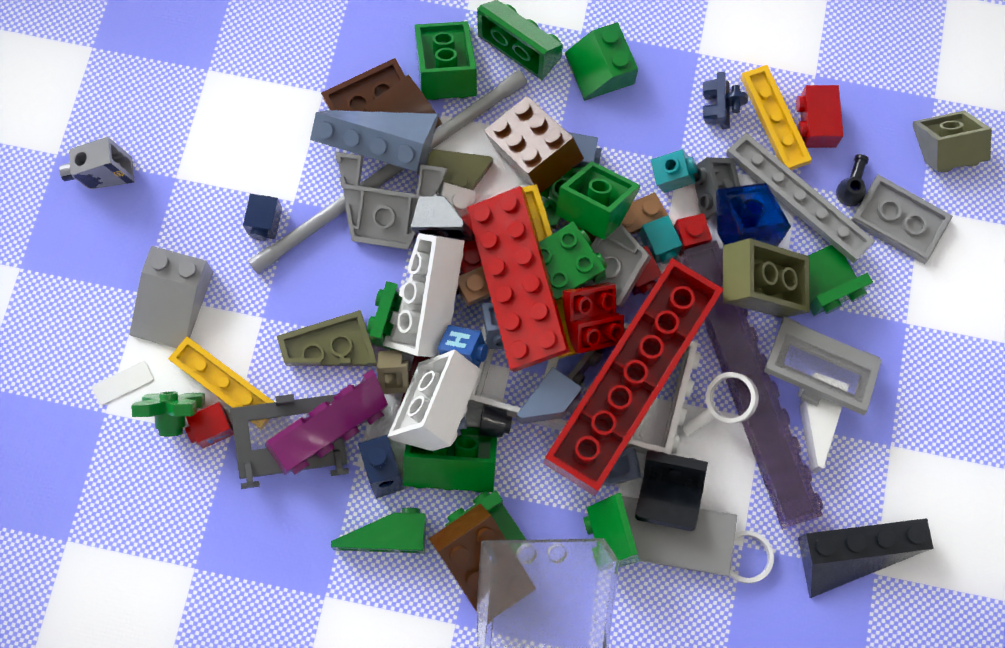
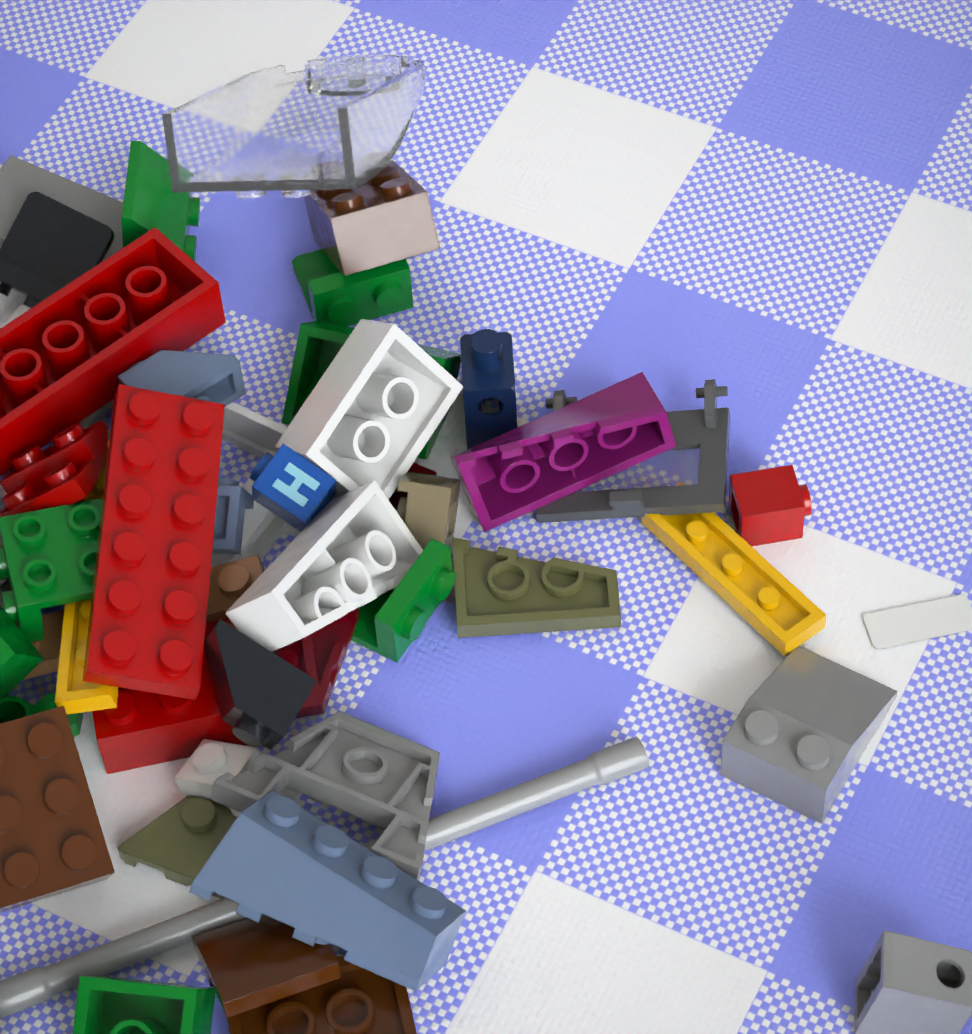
camera: 160 degrees left, 20 degrees down
(168, 410) = (832, 527): green plant -> none
(262, 217) = (601, 830): dark blue brick -> none
(393, 534) = (513, 302): green slope -> none
(494, 422) = (280, 401): black hat -> none

